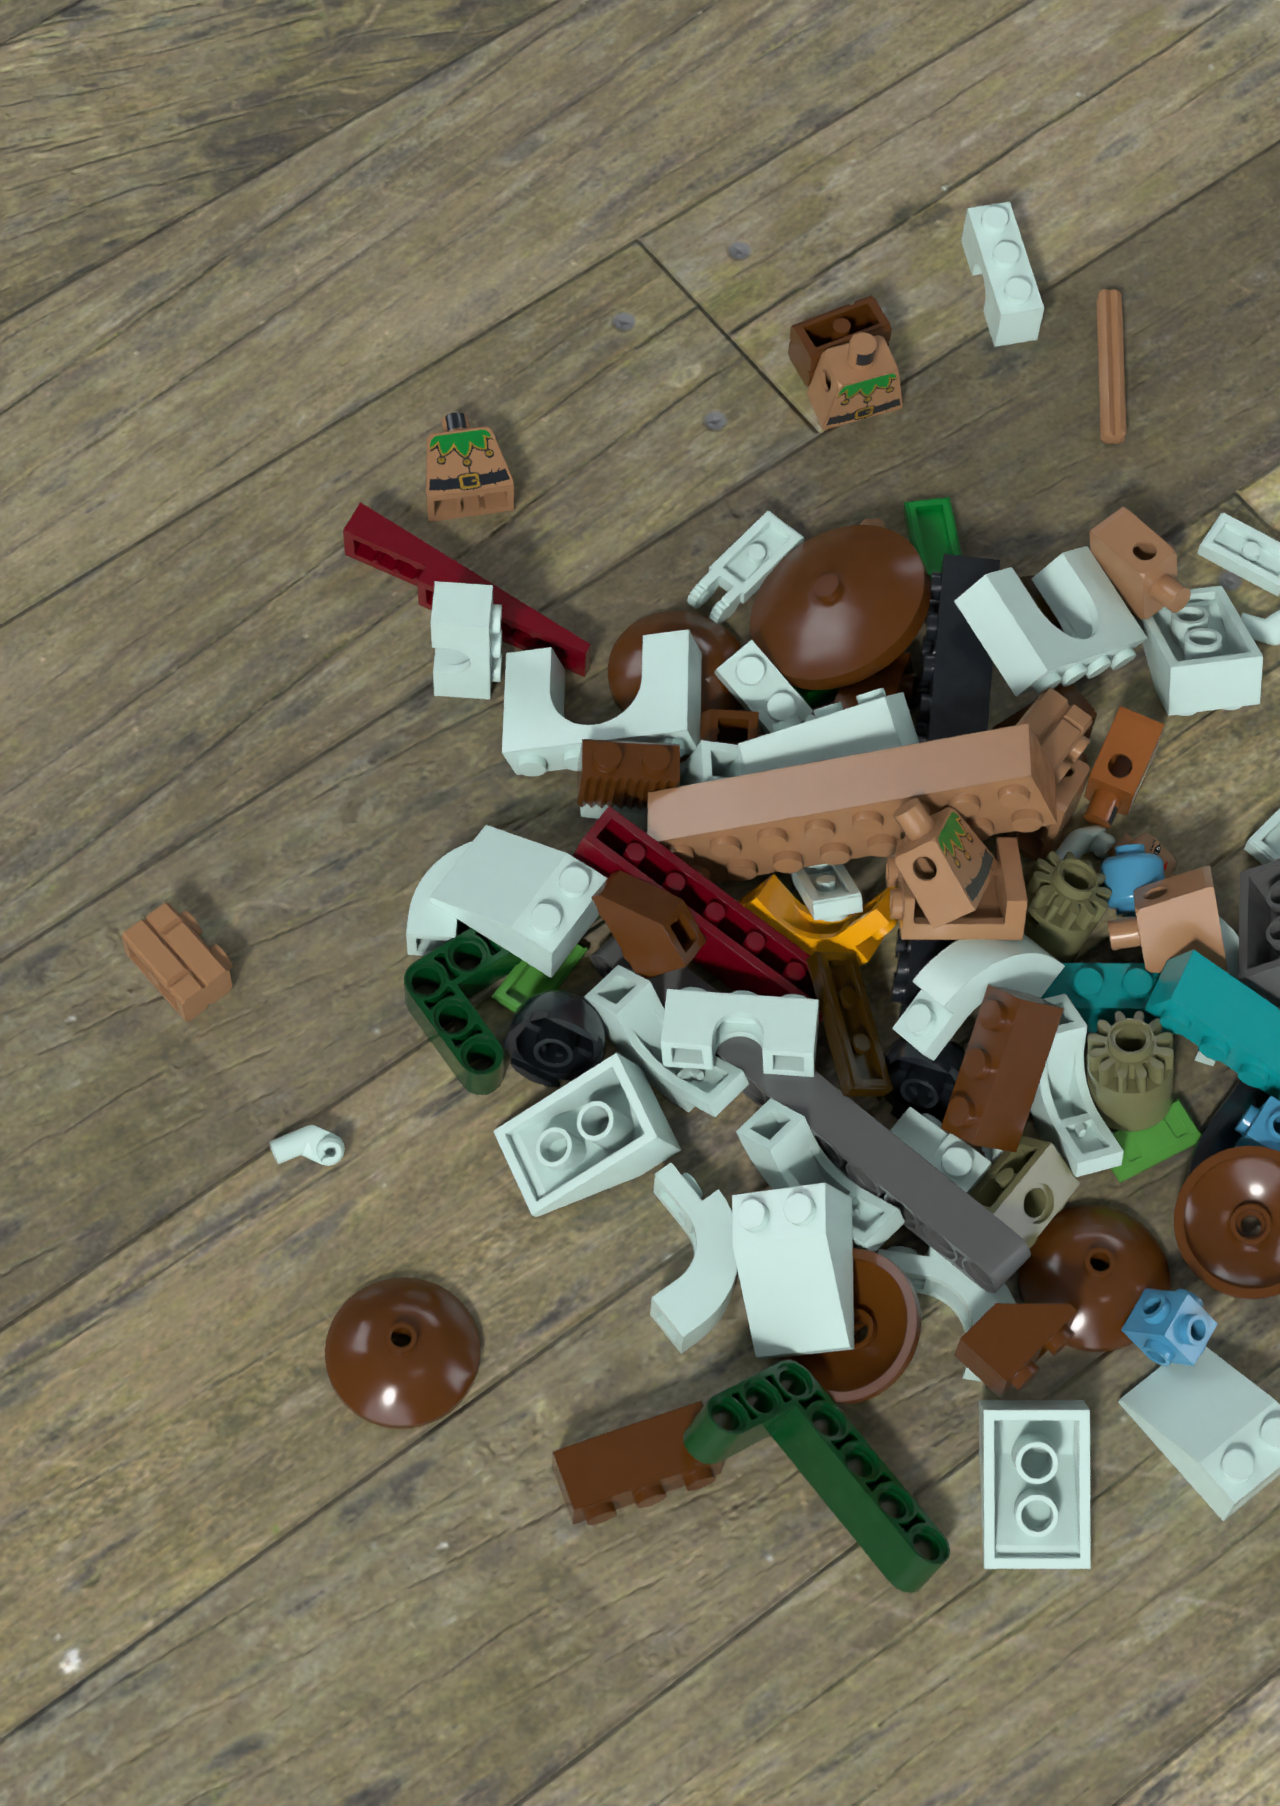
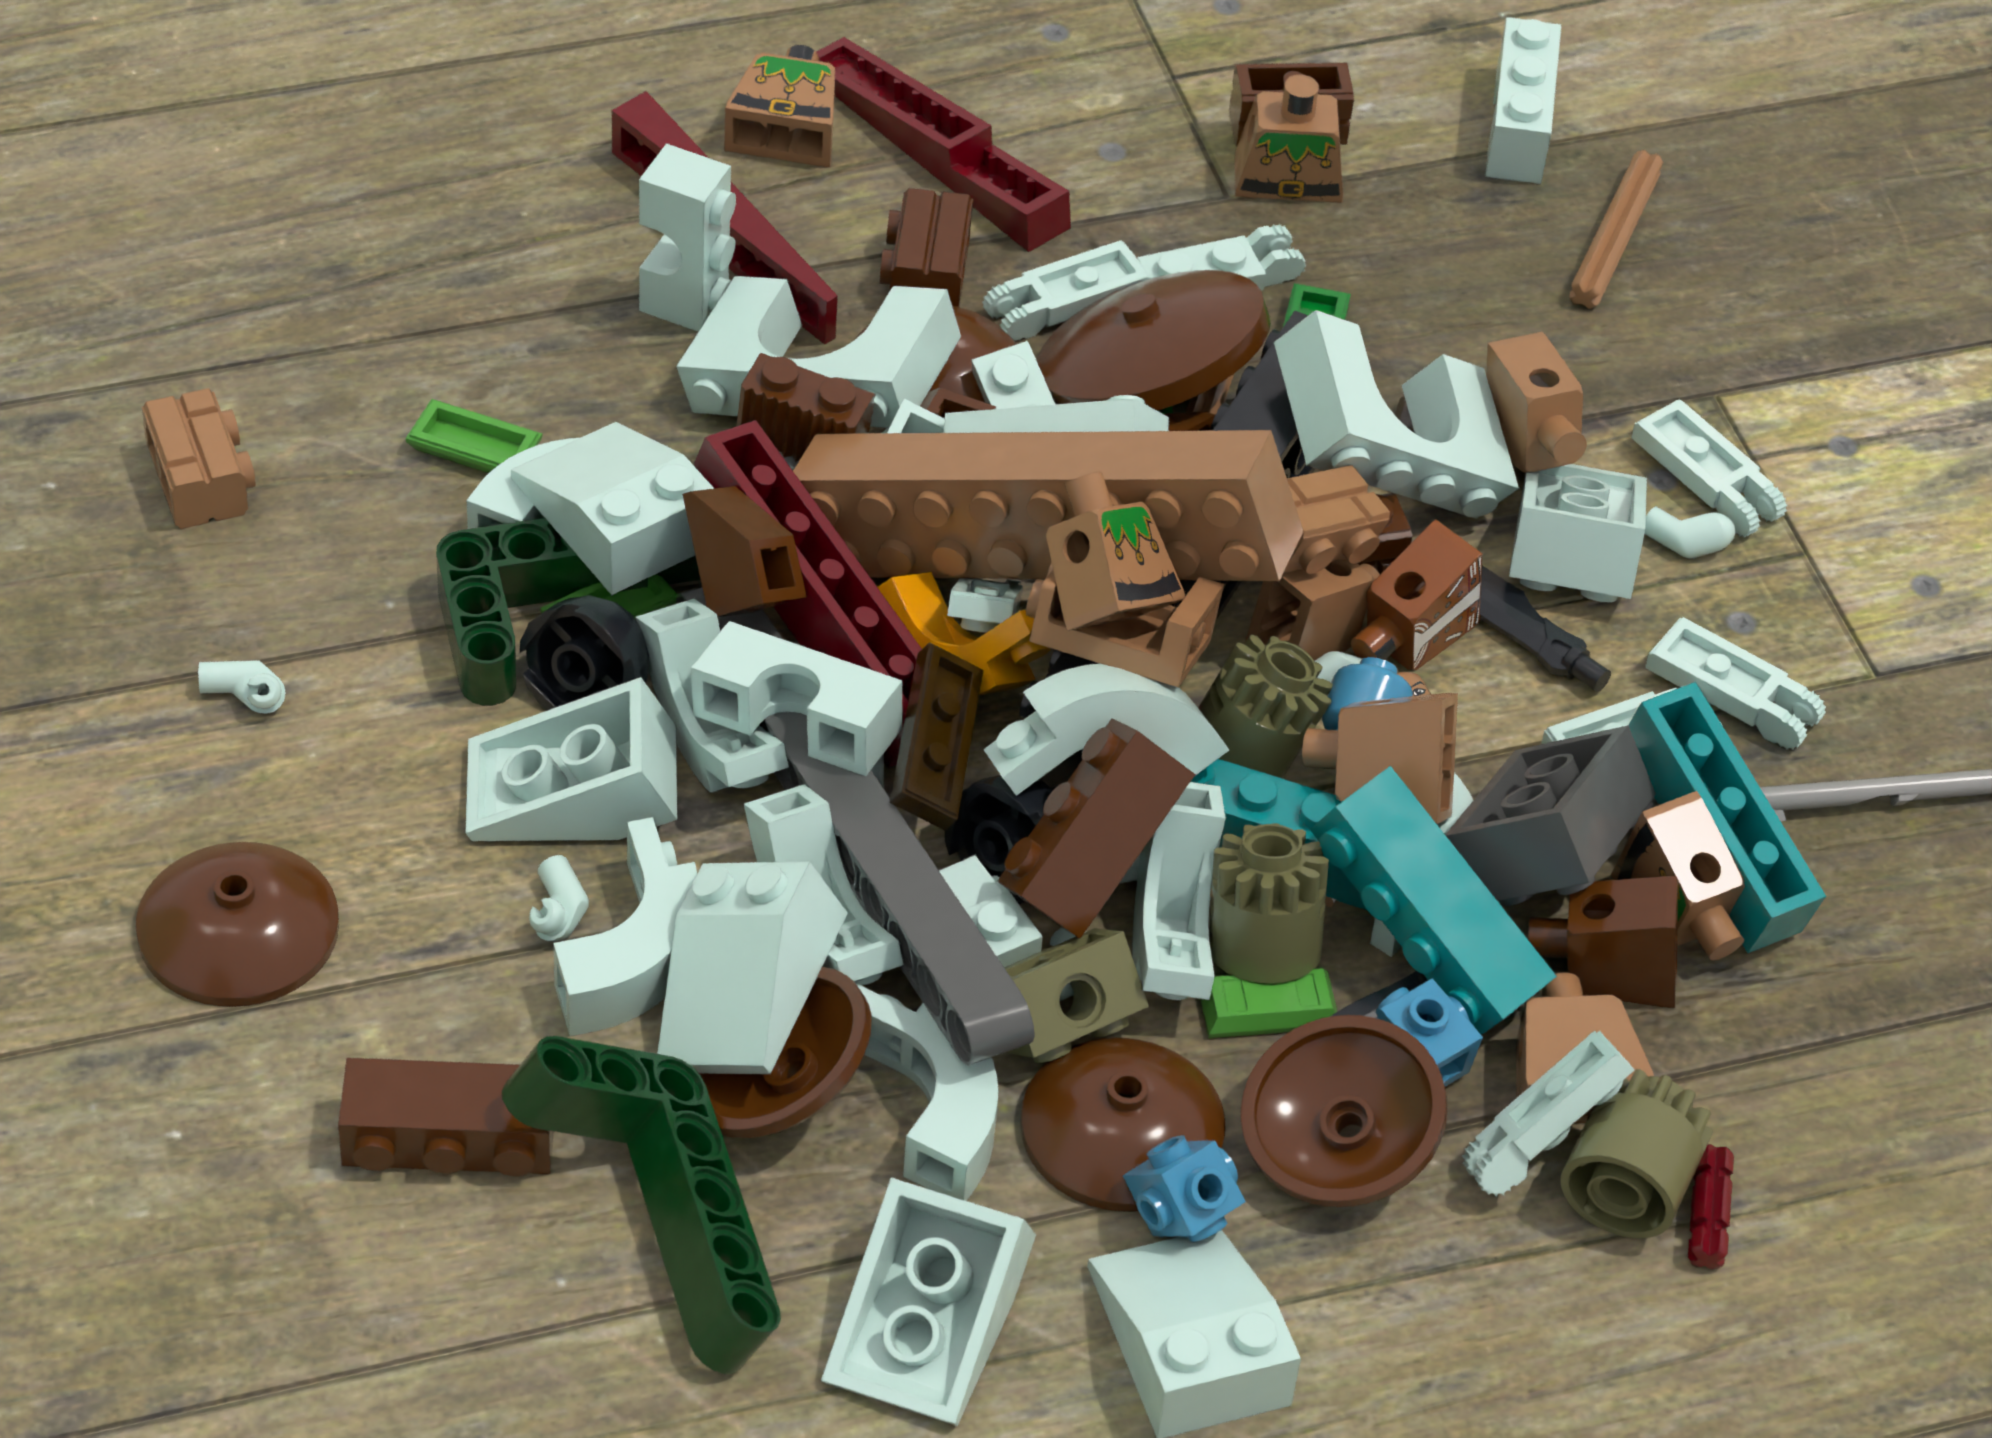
camera: 20 degrees right, 15 degrees down
(371, 862) = (468, 436): none -> bright green tile
(593, 459) = (949, 145): none -> dark red slope
(630, 568) = (929, 242): none -> reddish brown brick
(630, 1244) = (566, 901): none -> light aqua arm
(846, 500) = (1236, 255): none -> light aqua hinge
(1012, 1339) = (968, 1119): reddish brown slope -> none
(1182, 745) = (1560, 652): none -> black sword

